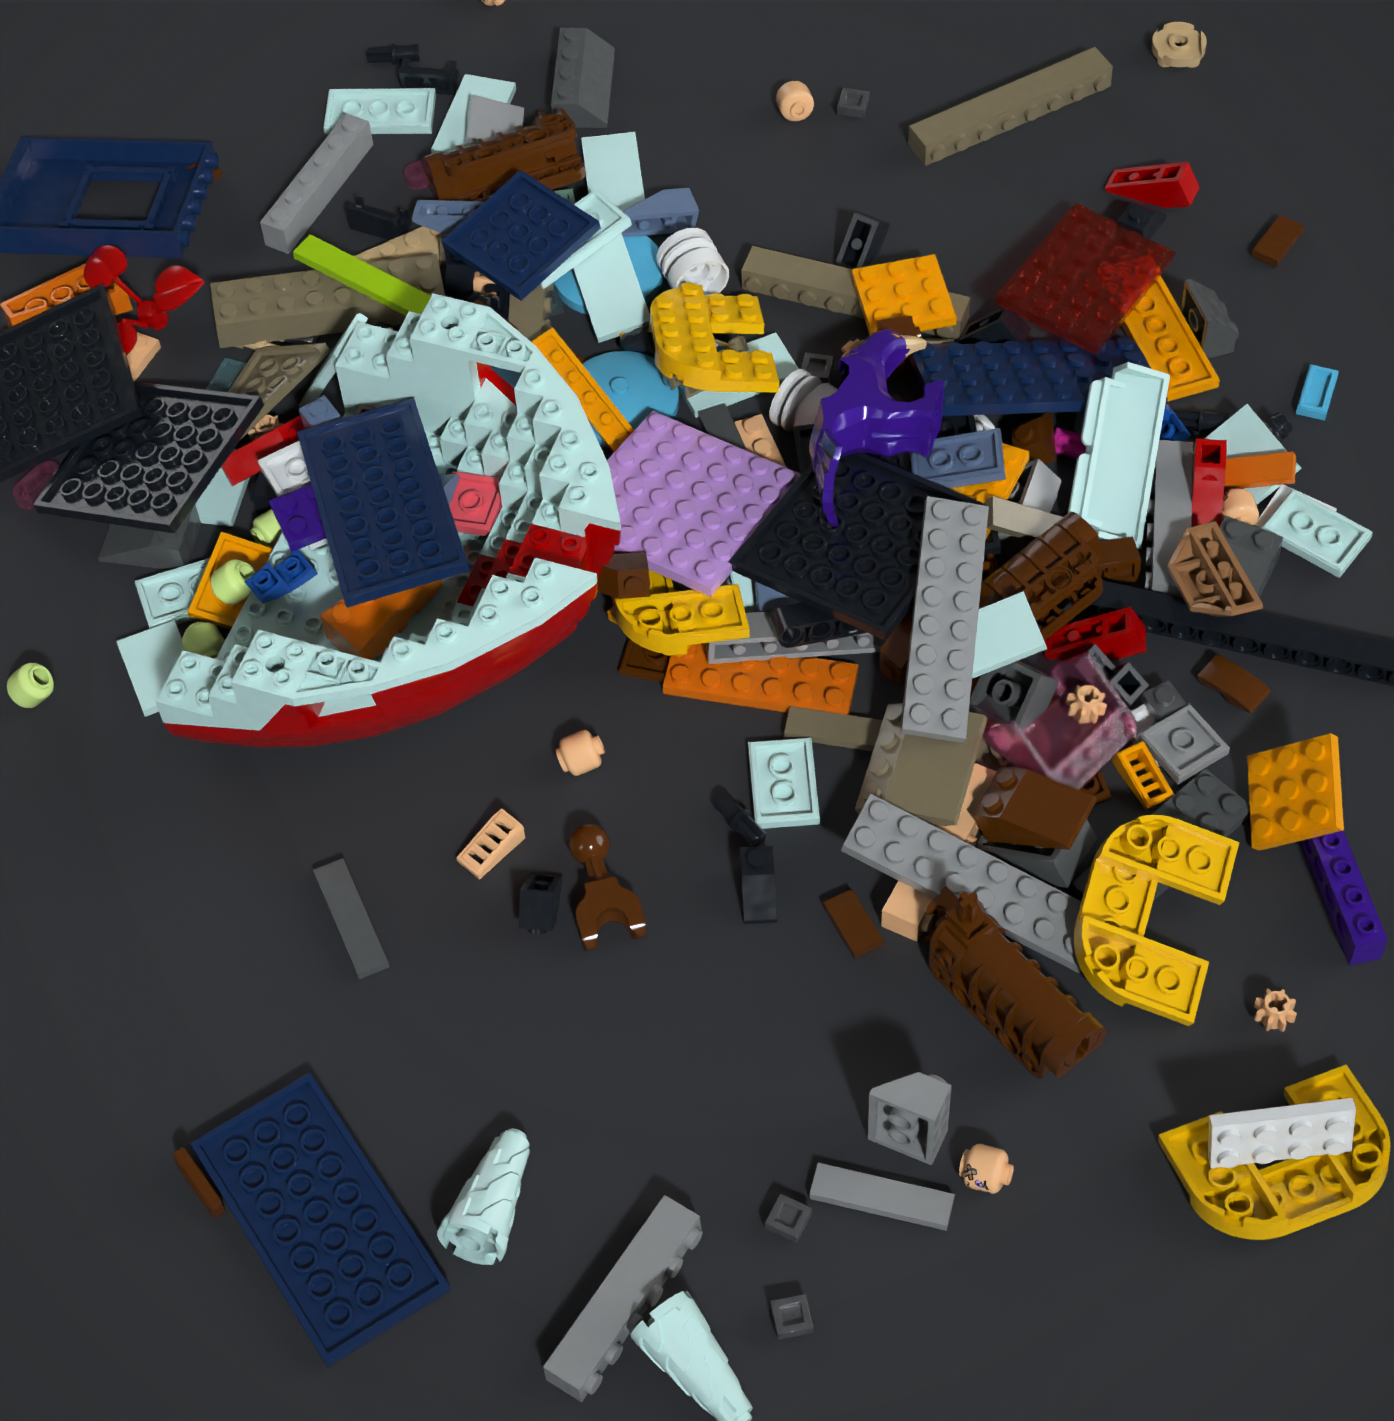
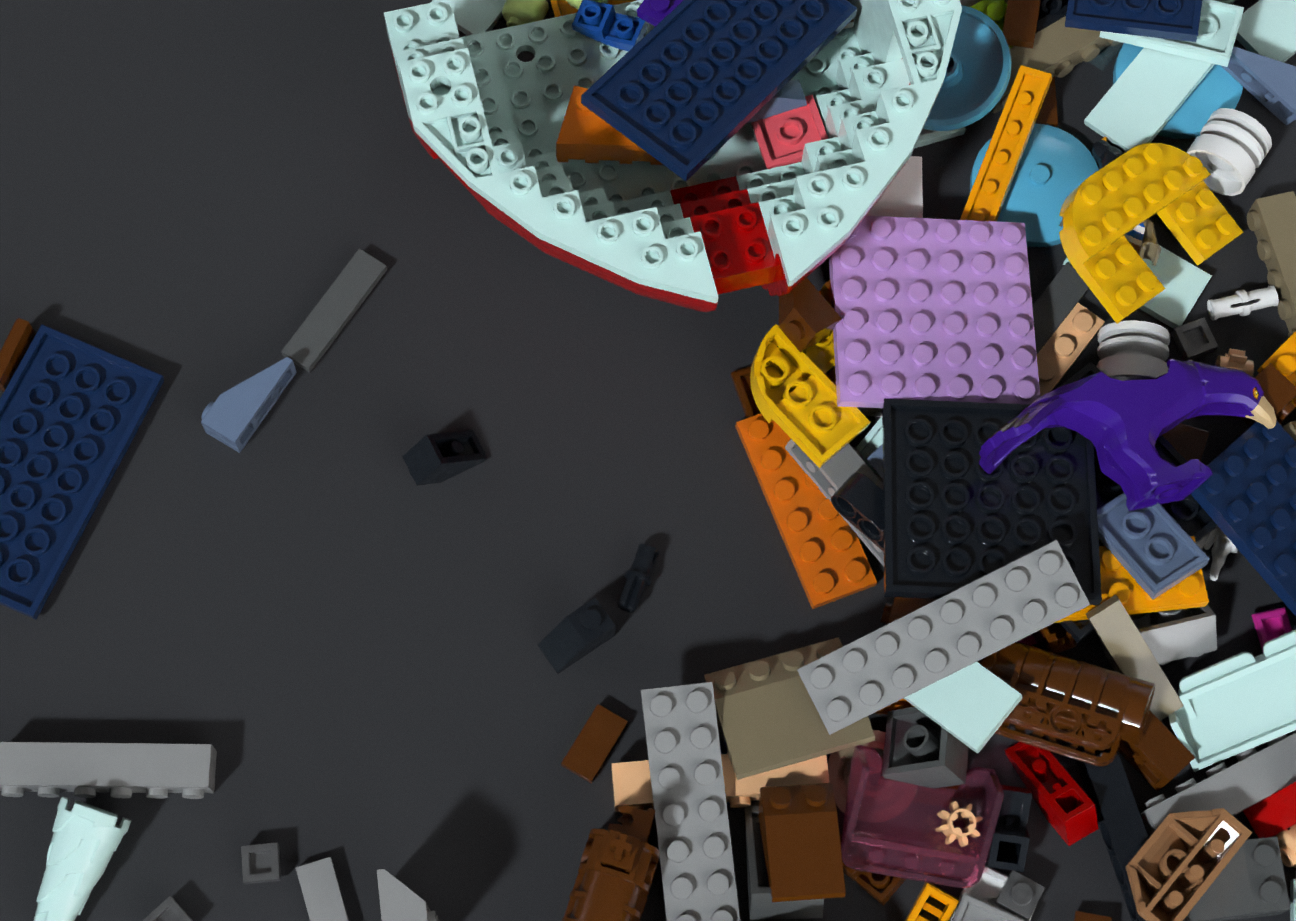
camera: 50 degrees right, 15 degrees up
(385, 1028) = (243, 407): none -> sand blue slope
(487, 1203) = (124, 599): light aqua cone -> none
(492, 828) = (488, 391): light nougat slope -> none
(580, 752) = (616, 394): light nougat head -> none
(604, 897) = (480, 509): reddish brown piece -> none
(783, 783) = (705, 592): light aqua tile -> none
(813, 321) = (1262, 299): none -> white pin
(832, 728) = (791, 599): dark tan tile -> none
(1036, 437) = (1245, 597): reddish brown slope -> none

